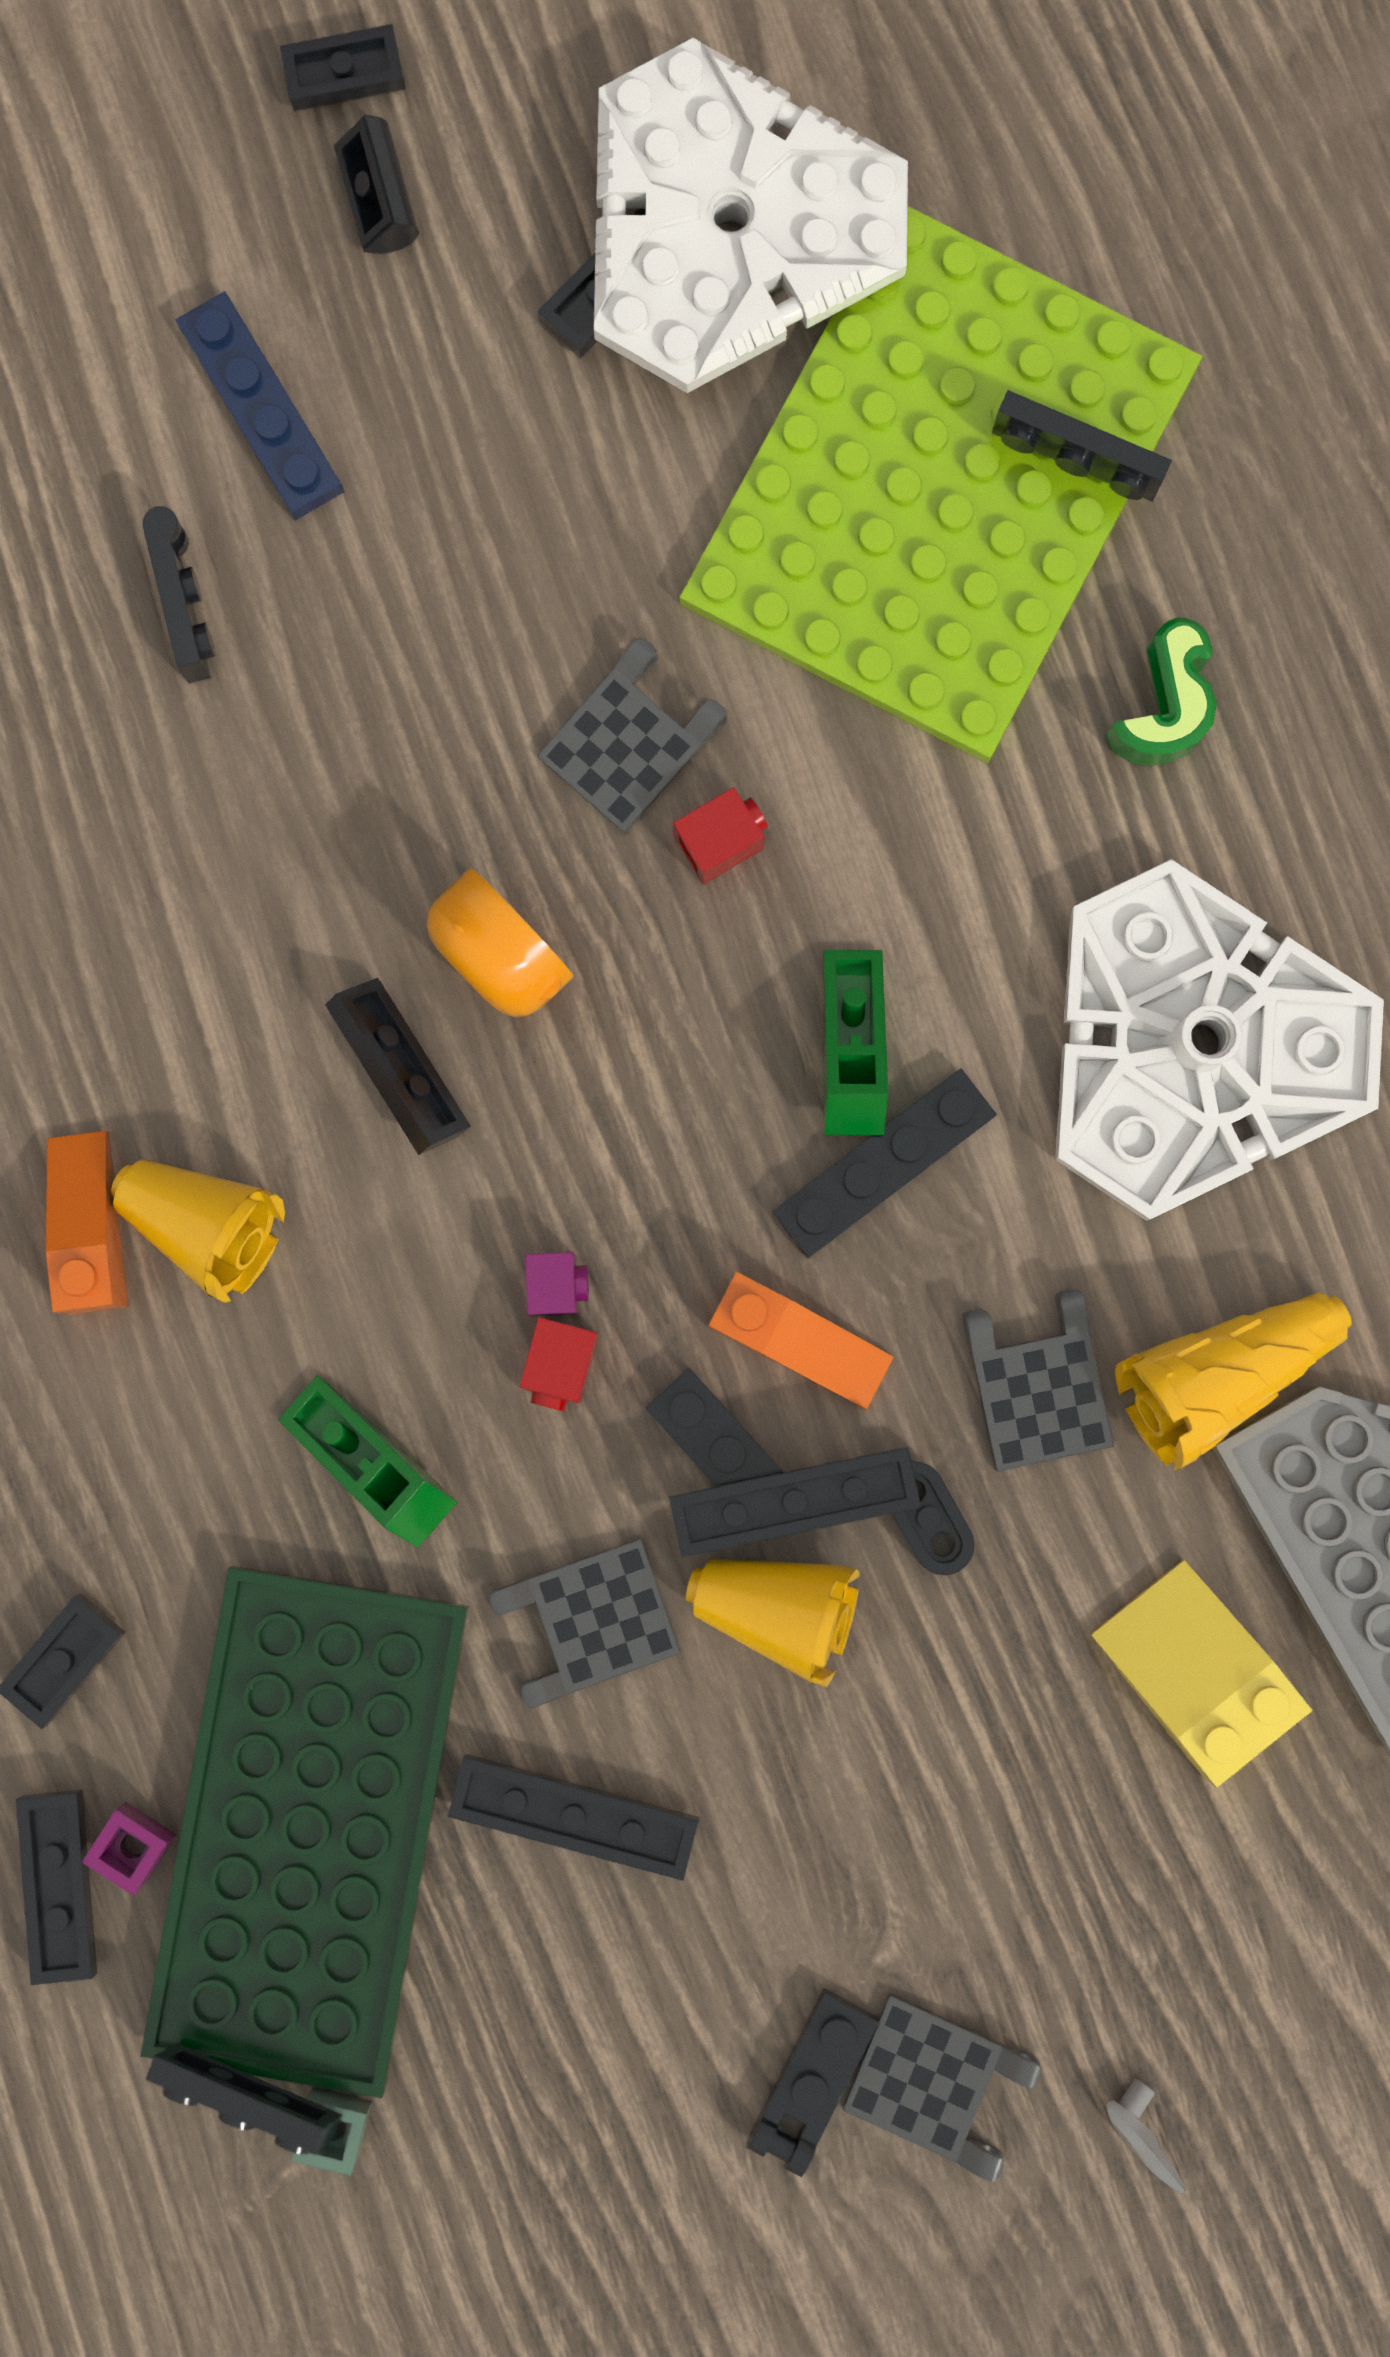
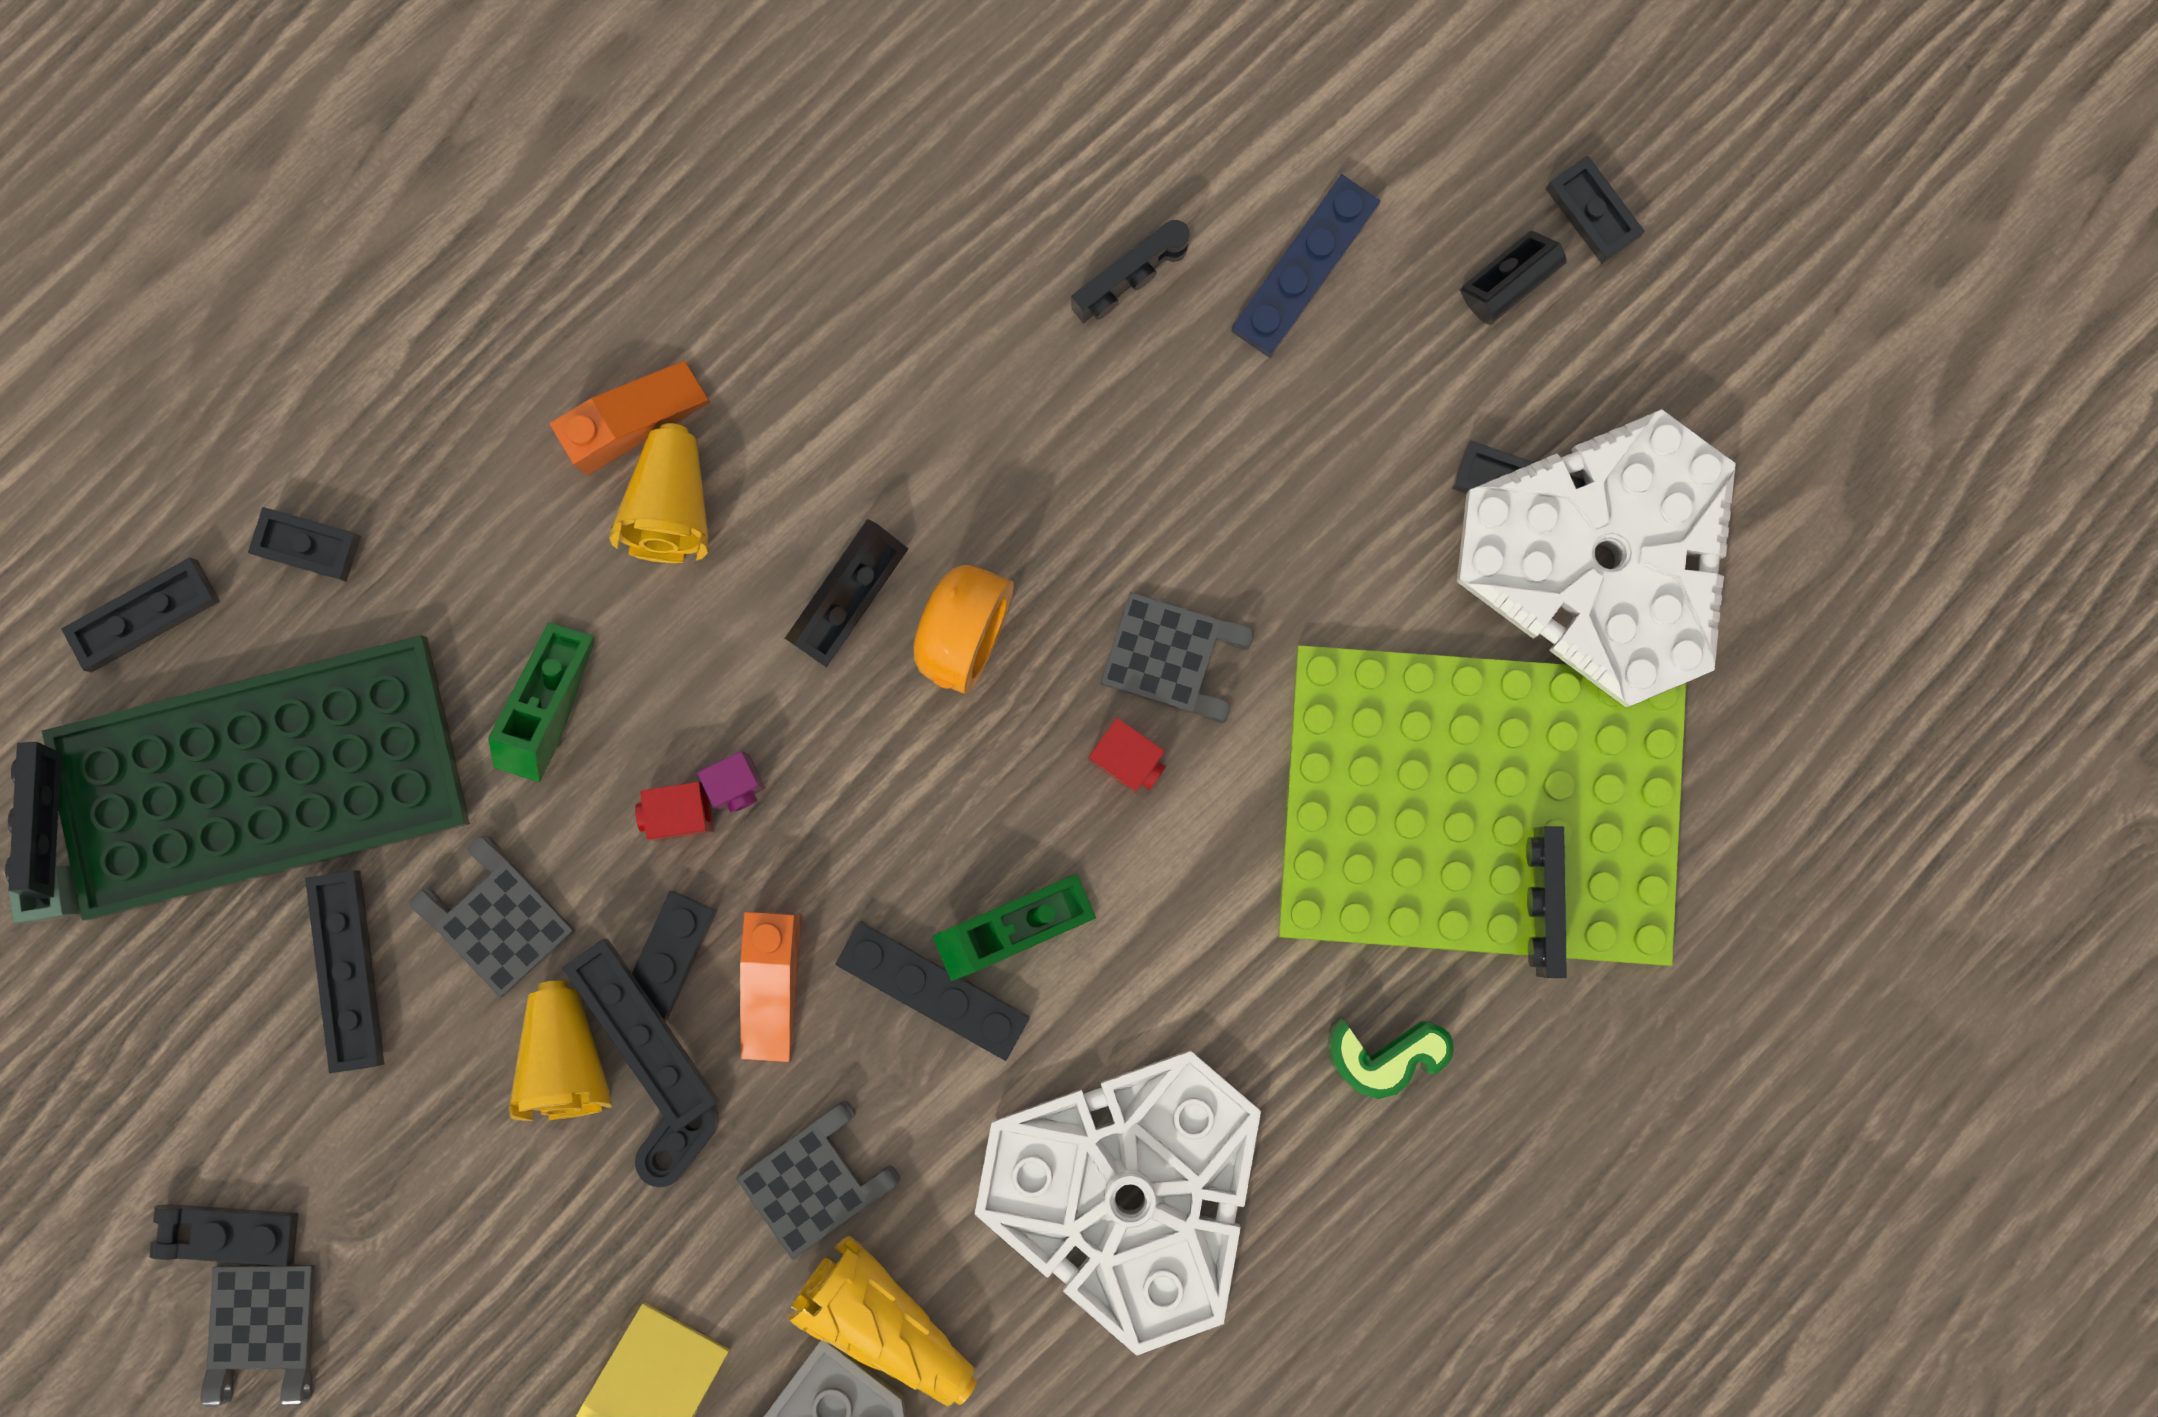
camera: 70 degrees right, 0 degrees up
(114, 1861) = (174, 653): magenta plate -> none

